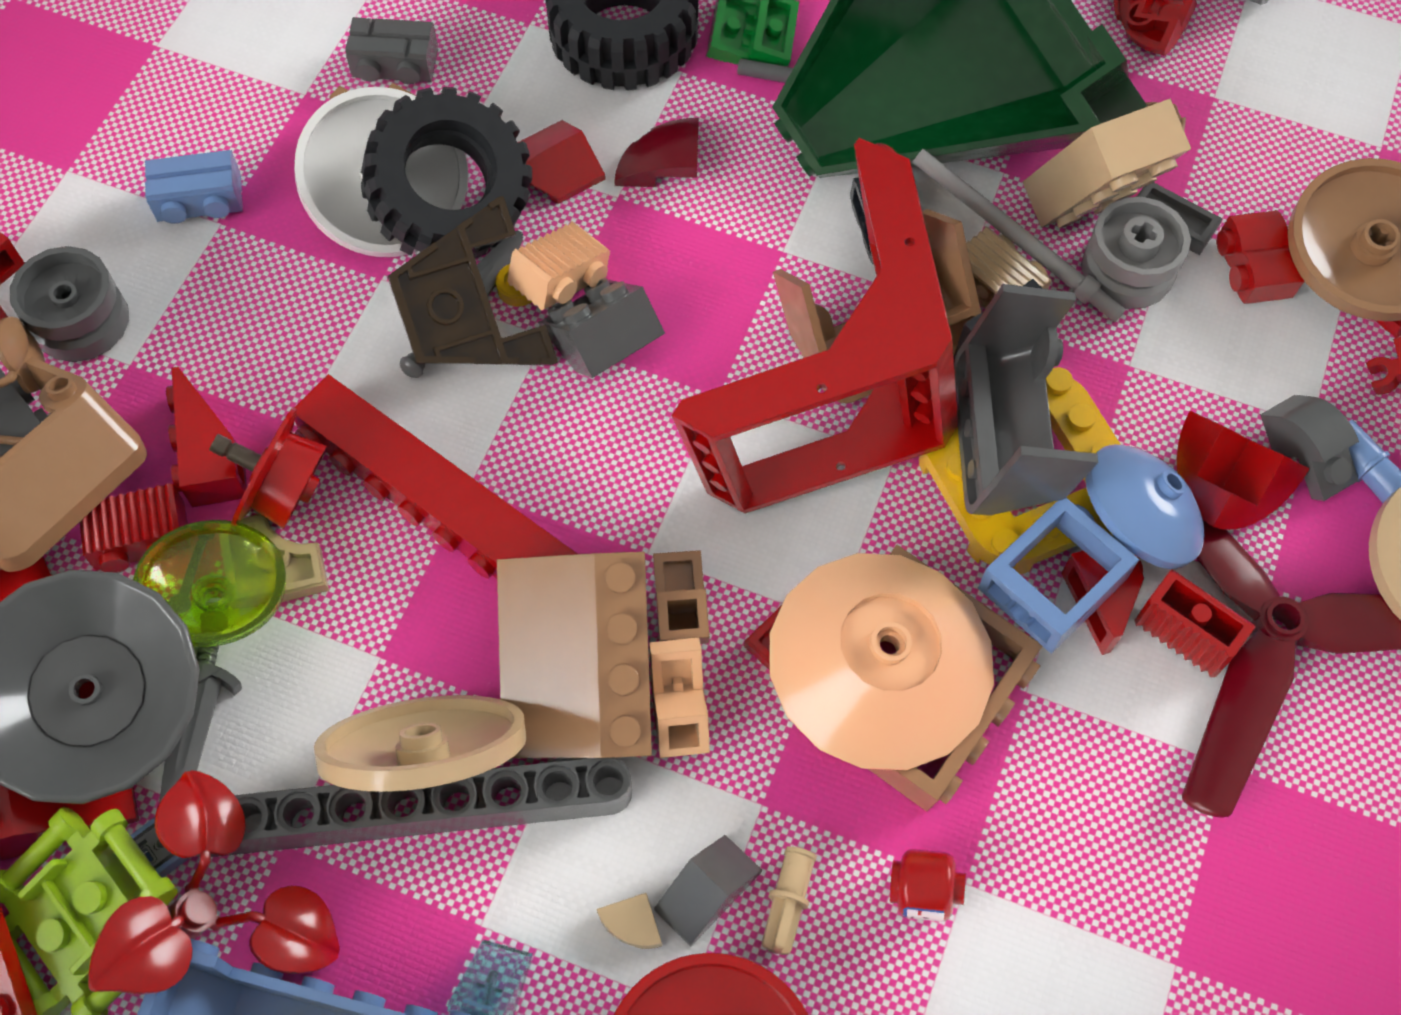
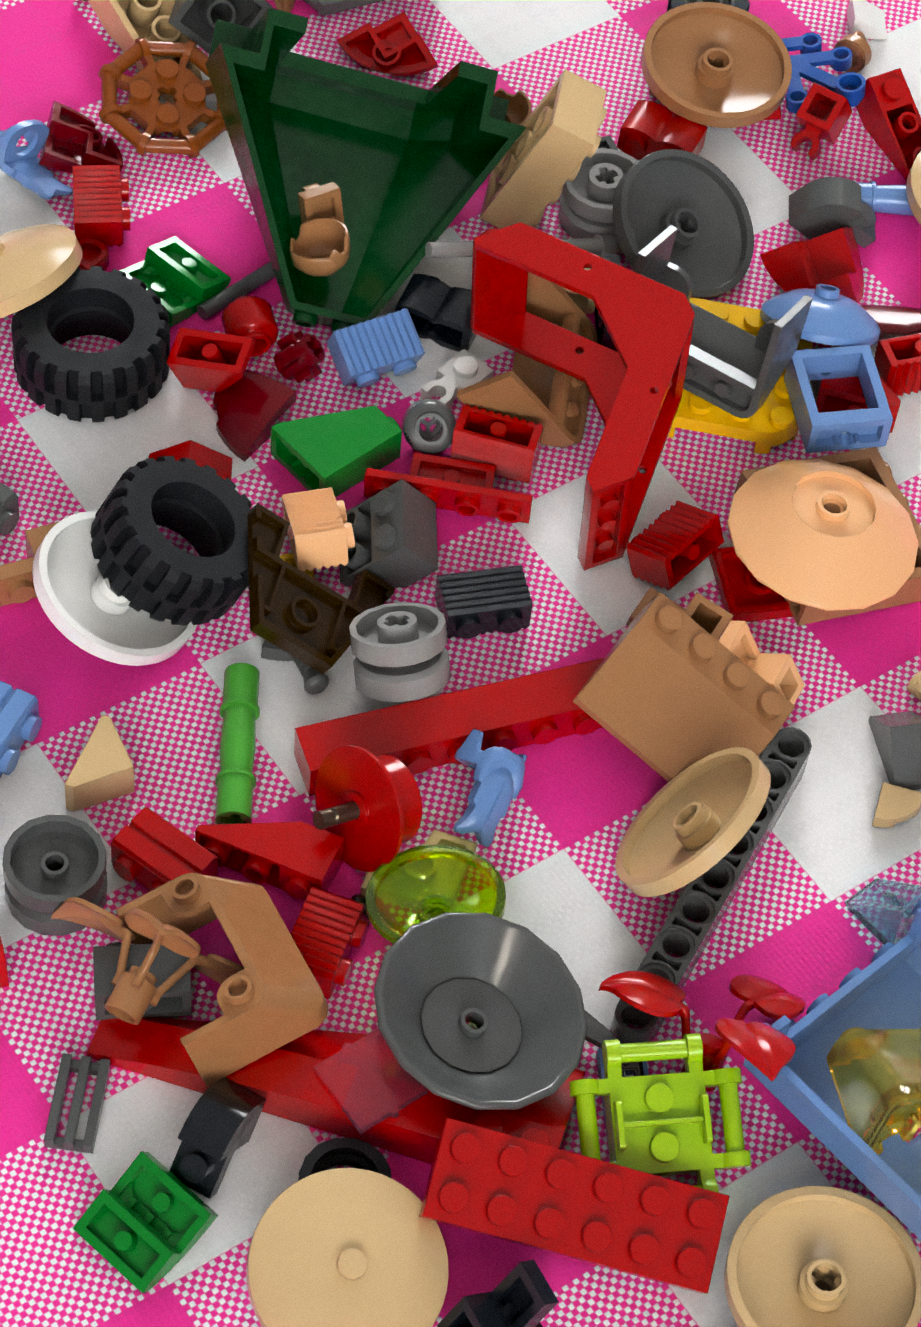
camera: 60 degrees left, 10 degrees down
(142, 367) = (158, 852): none -> red brick
(210, 272) = (101, 770): none -> tan slope
(301, 351) = (237, 744): none -> bright green piece
(380, 555) = (498, 781): none -> medium blue hair
(464, 399) = (400, 652): none -> light grey wheel
(590, 433) = (484, 601): none -> black brick
(669, 235) = (336, 447): none -> green slope
(670, 87) = (209, 359): none -> red slope
(699, 328) = (456, 487): none -> red bracket
(741, 150) = (299, 357): none -> dark red gear
(744, 99) = (251, 318): none -> red head
(745, 279) = (428, 441): none -> dark grey head
(764, 329) = (497, 441): none -> red brick
(777, 542) = (674, 545): none -> red brick
(799, 194) = (376, 348): none -> medium blue brick
(836, 275) = (454, 375): none -> white plate
(856, 90) = (320, 247): none -> medium nougat hair
(901, 61) = (320, 202): none -> medium nougat tile
(1155, 327) = (702, 202): none -> dark grey dish

